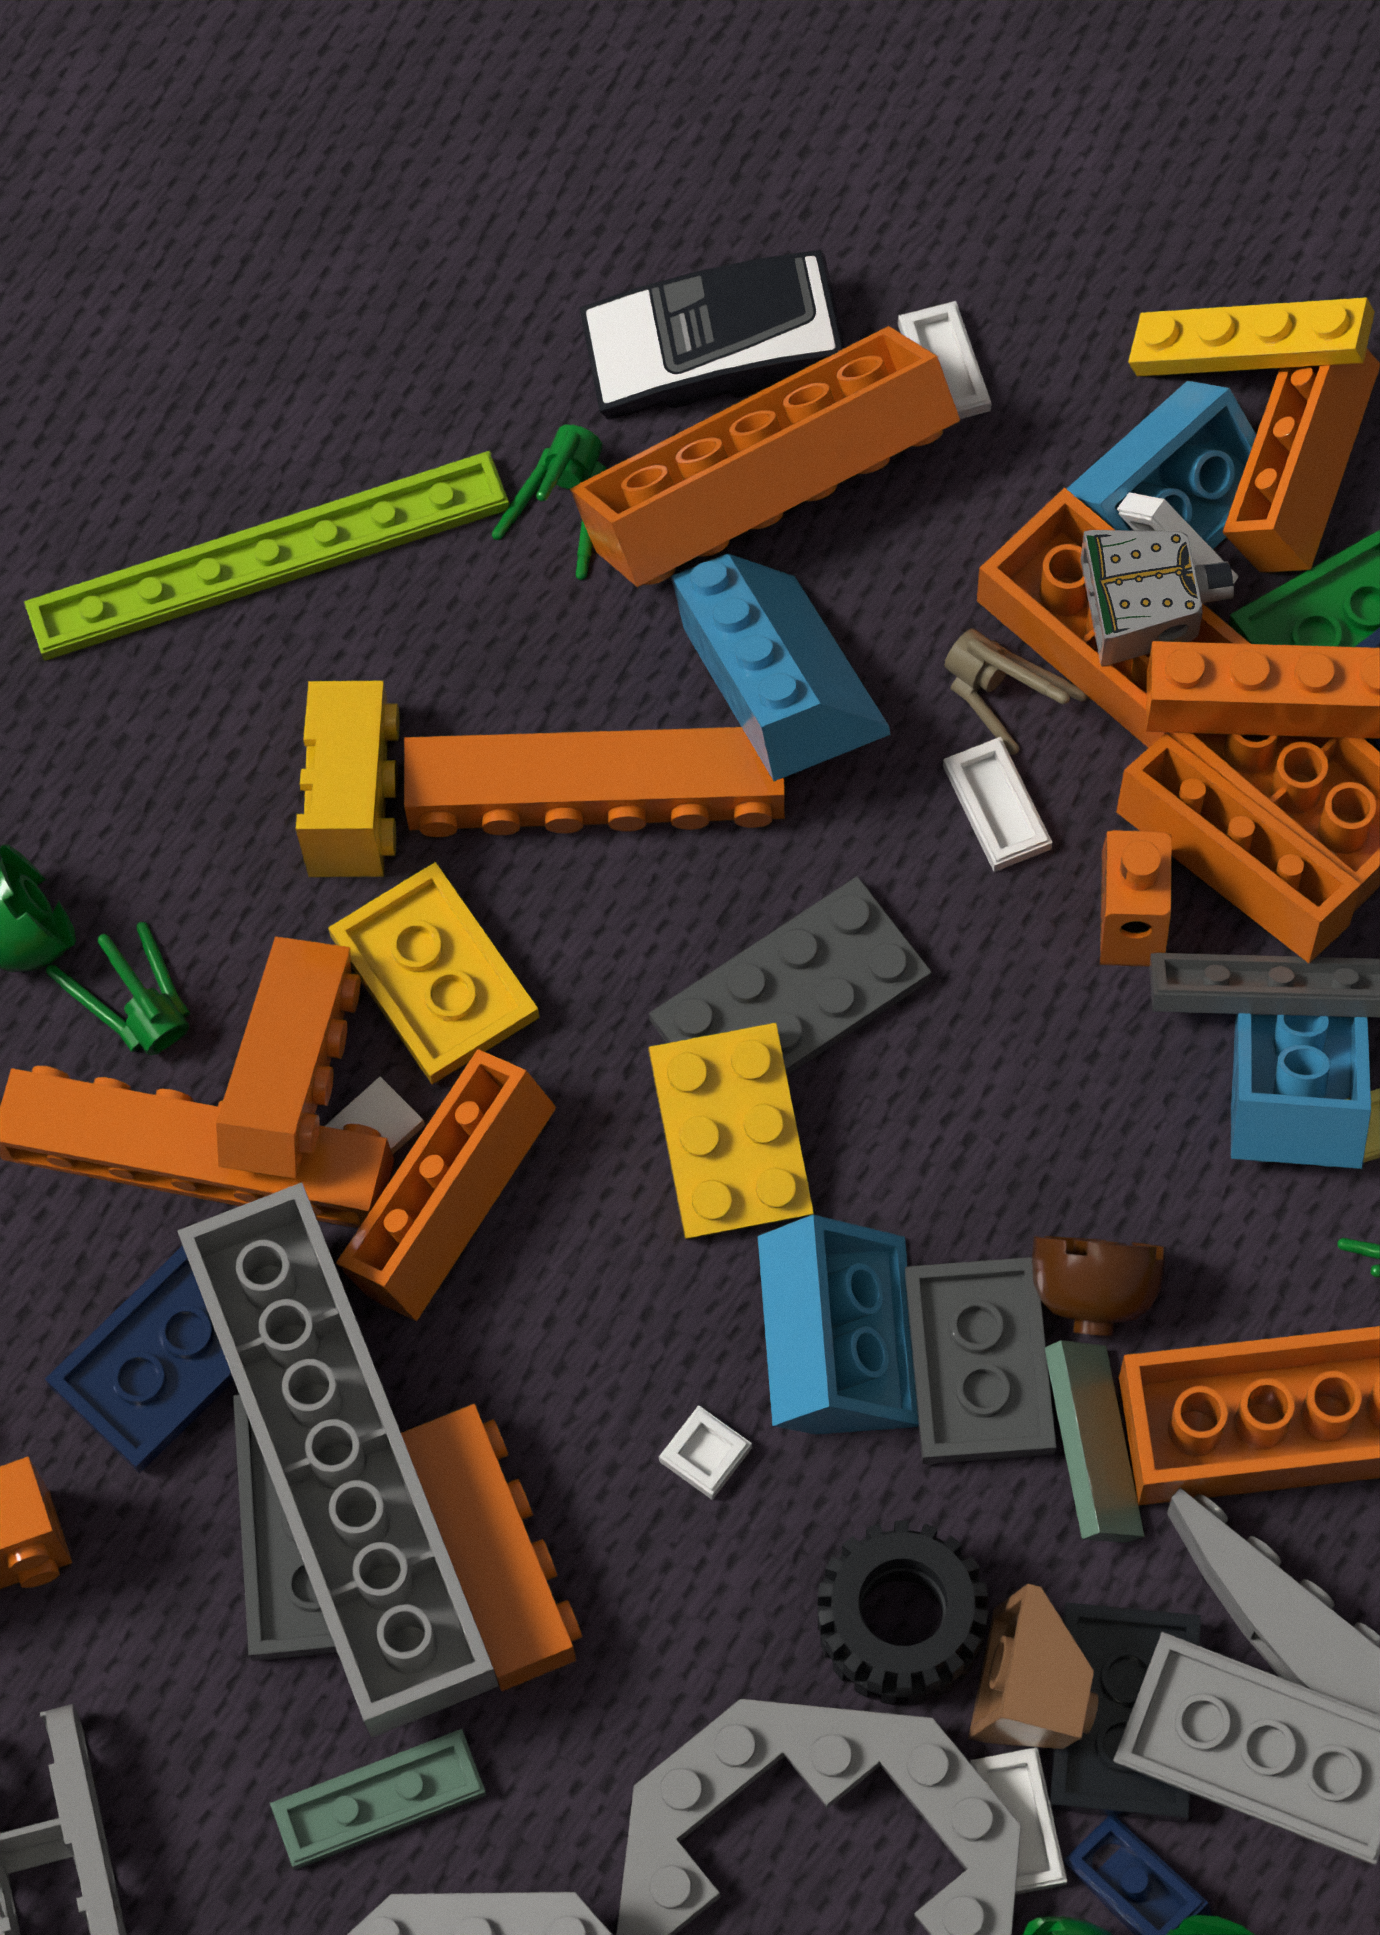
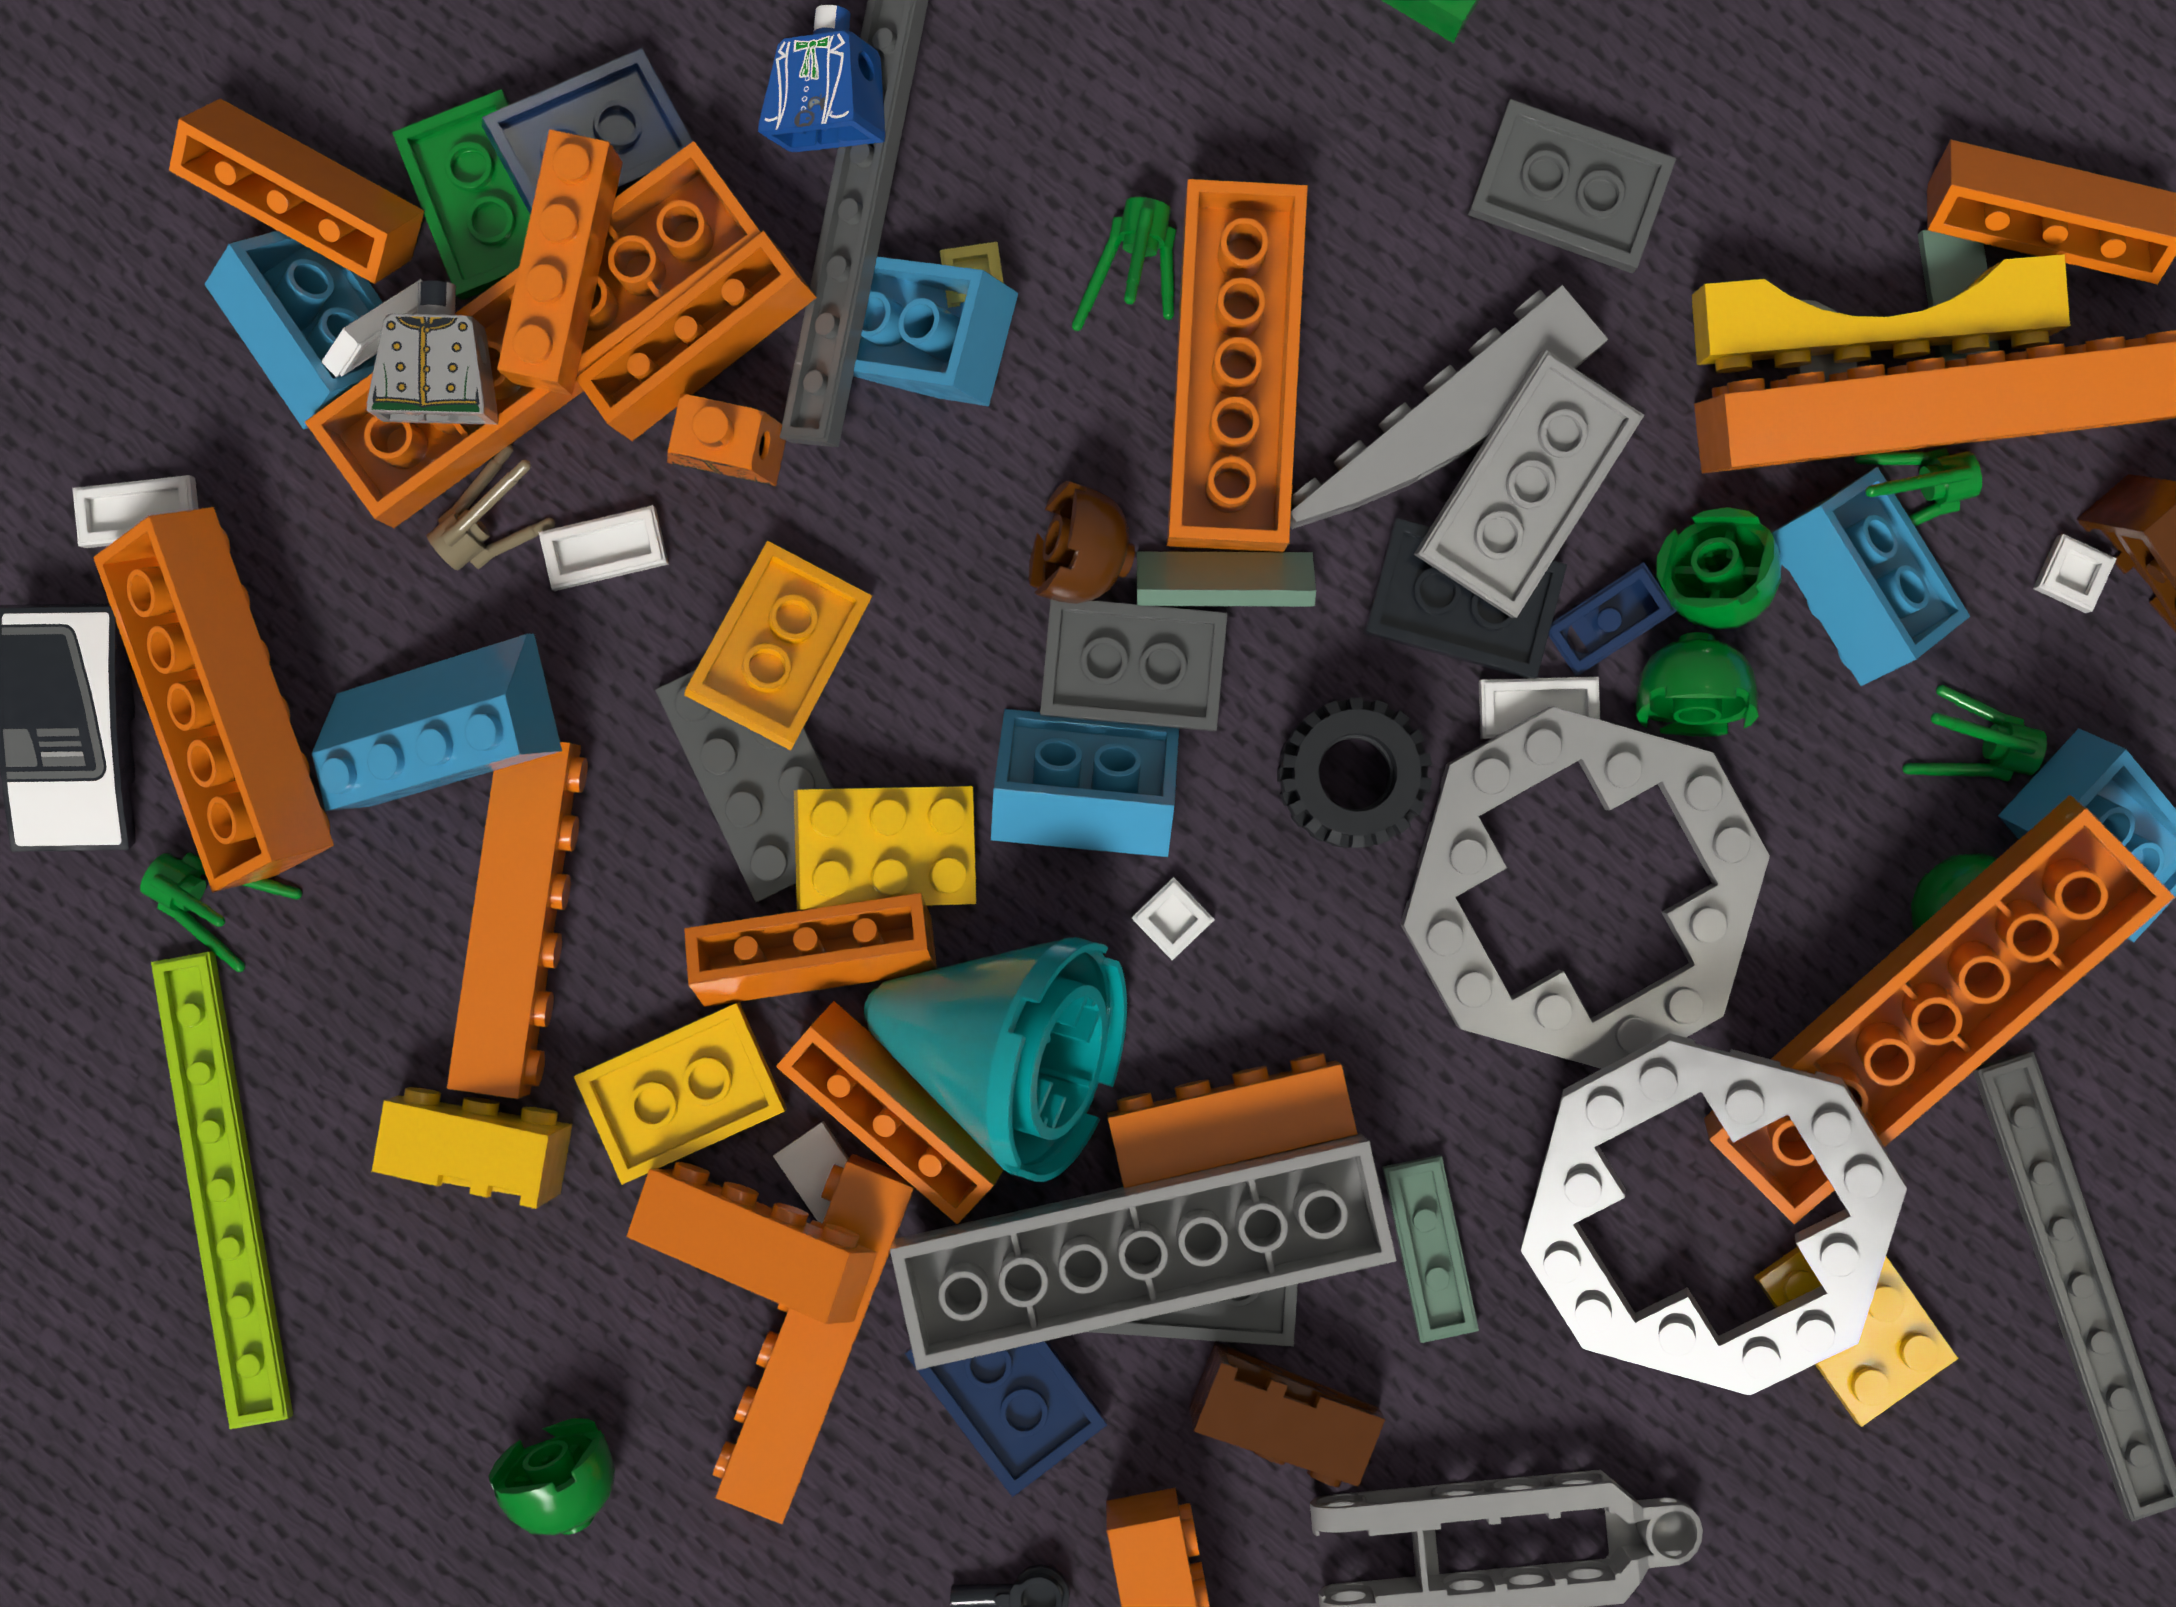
camera: 85 degrees left, 20 degrees up
(153, 1018) = (680, 1357): green plant -> none
(169, 1652) = (1284, 1416): none -> reddish brown wedge
(535, 1296) = (1012, 1046): none -> teal cone
(607, 1072) = (810, 949): none -> orange brick
(927, 984) = (778, 645): none -> light orange plate
(1032, 1678) = (1436, 674): medium nougat slope -> none
(1252, 337) = (173, 211): yellow plate -> none

